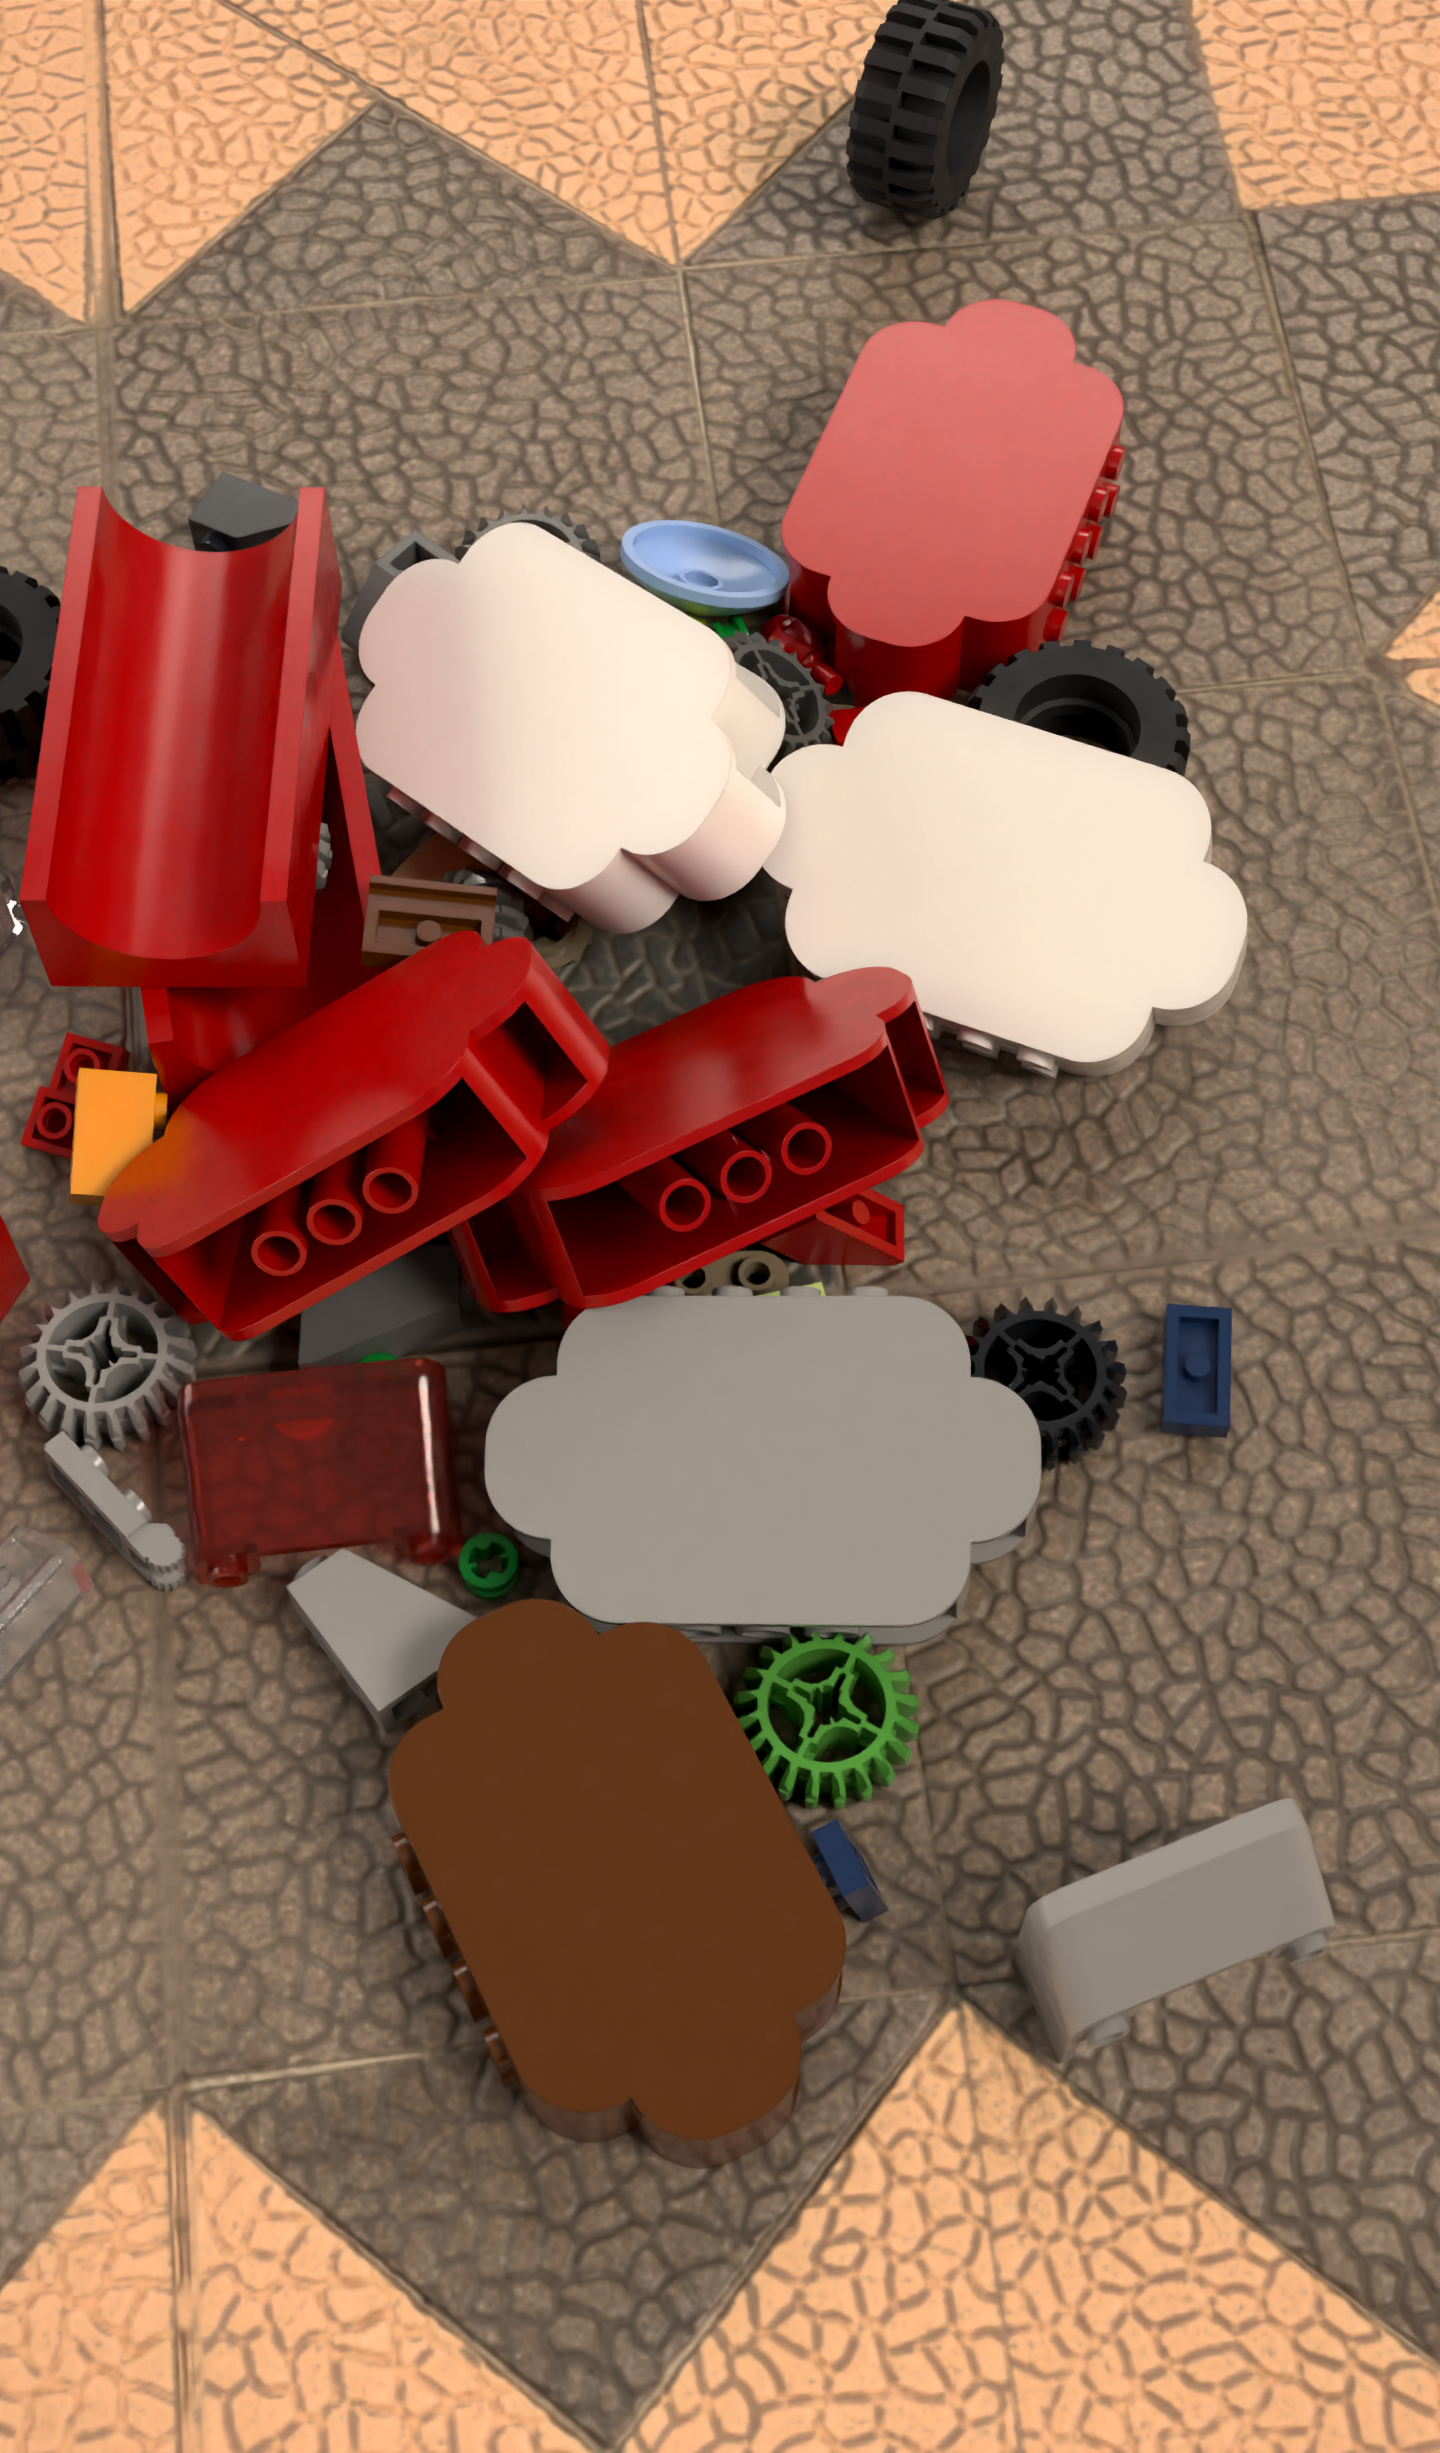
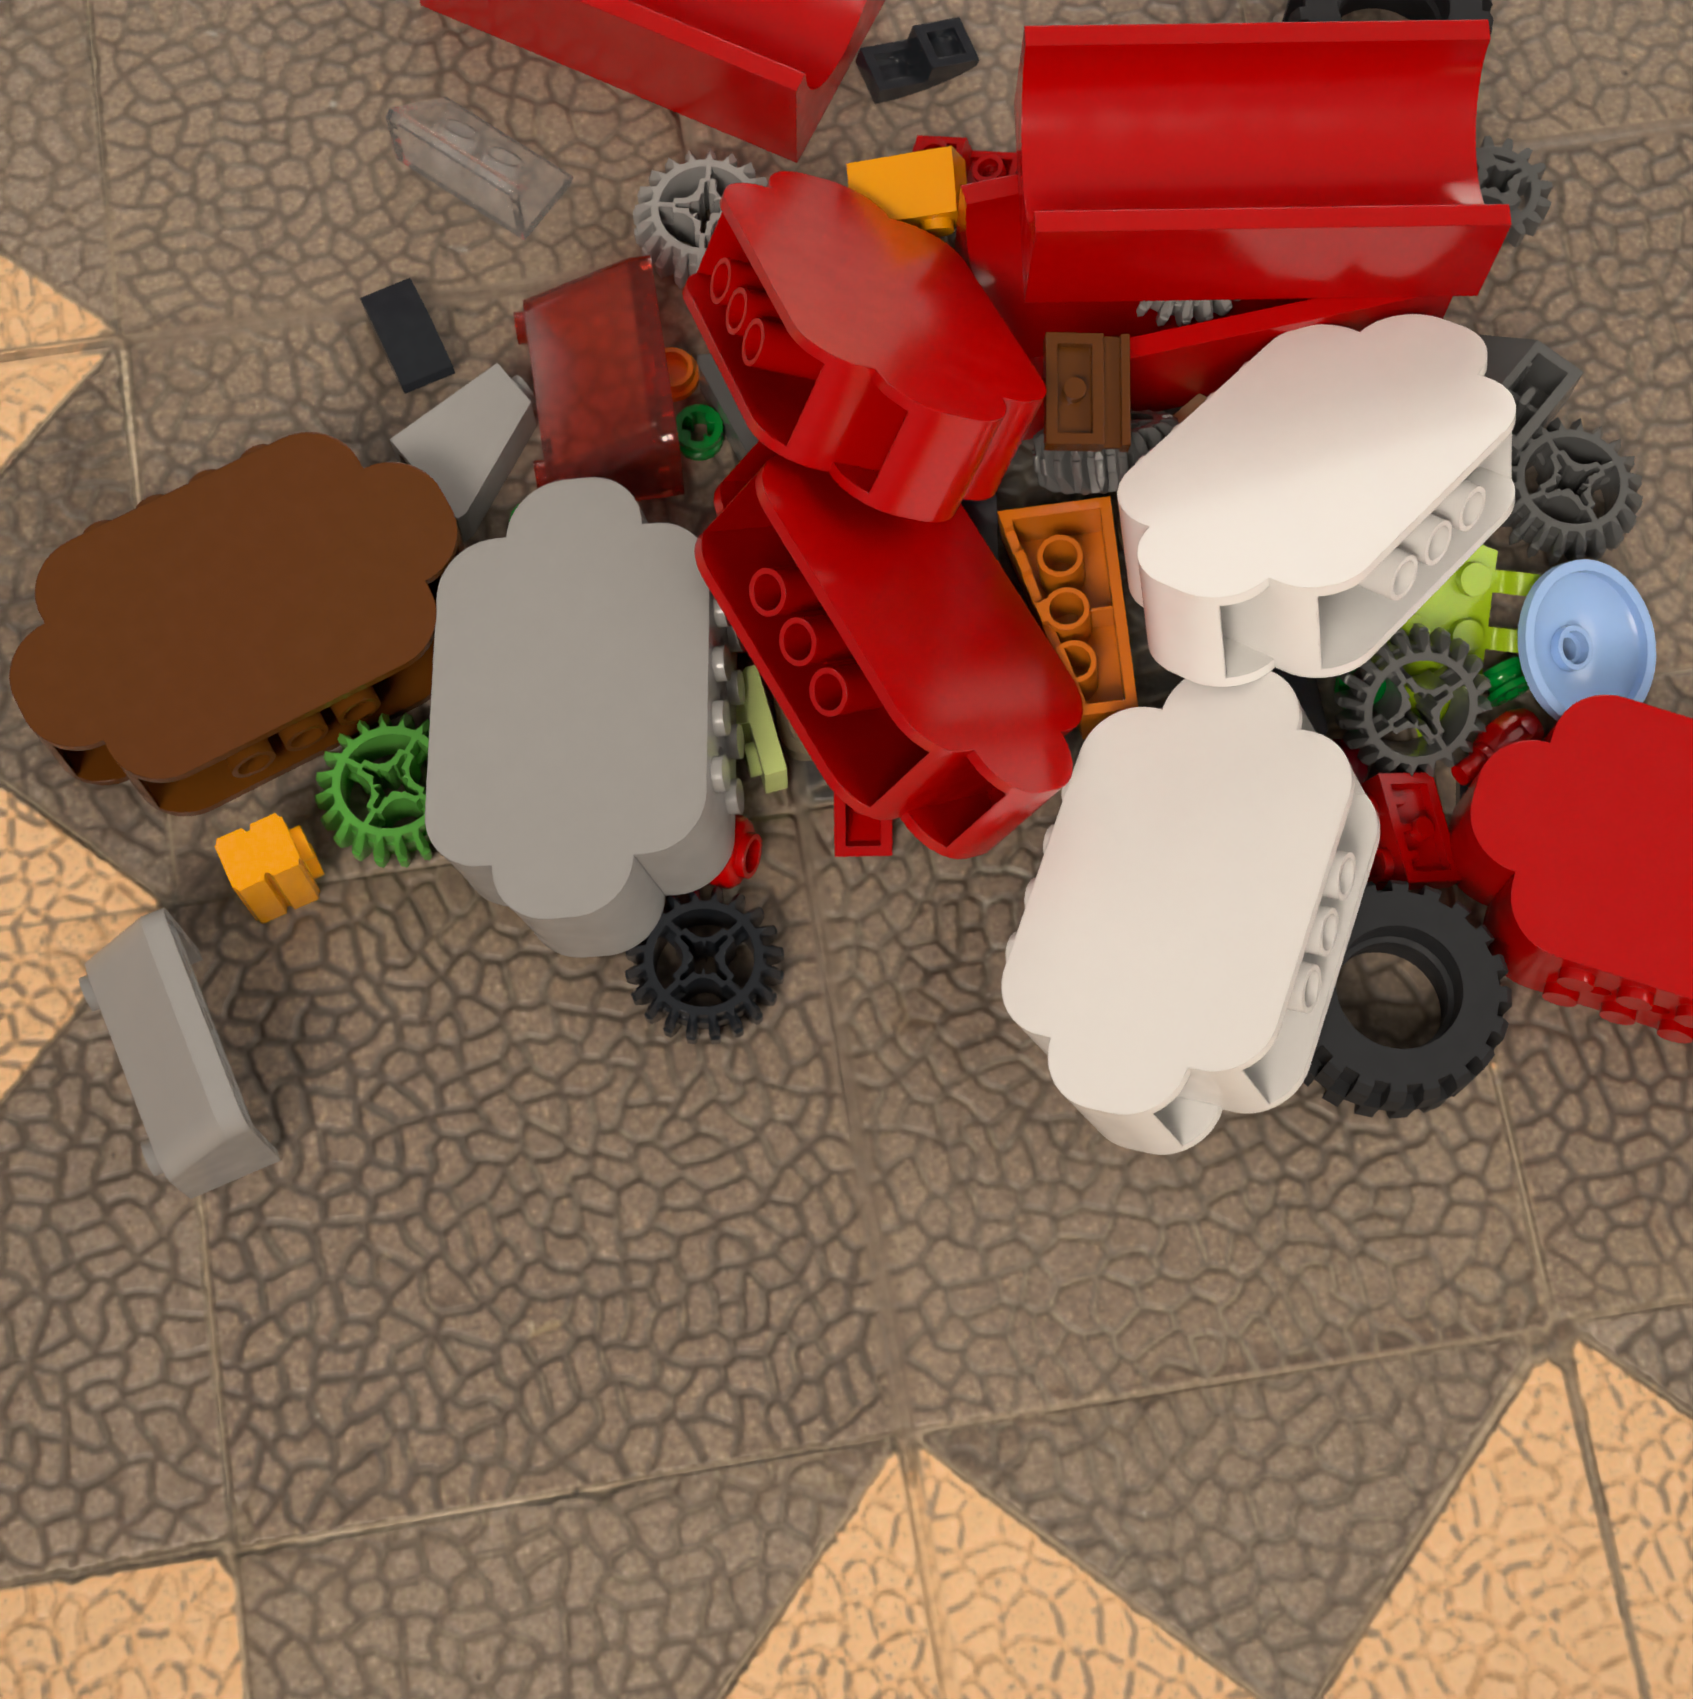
camera: 85 degrees right, 10 degrees up
(117, 1515) = (576, 237): light grey hinge -> none
(219, 1710) = (407, 335): none -> black slope
(239, 515) = (1593, 243): slope -> none
(651, 981) = (1075, 593): none -> orange wedge
(846, 1872) = (242, 793): dark blue plate -> none
(936, 1840) = (270, 867): none -> light orange brick
(1196, 1370) = (724, 1107): dark blue plate -> none

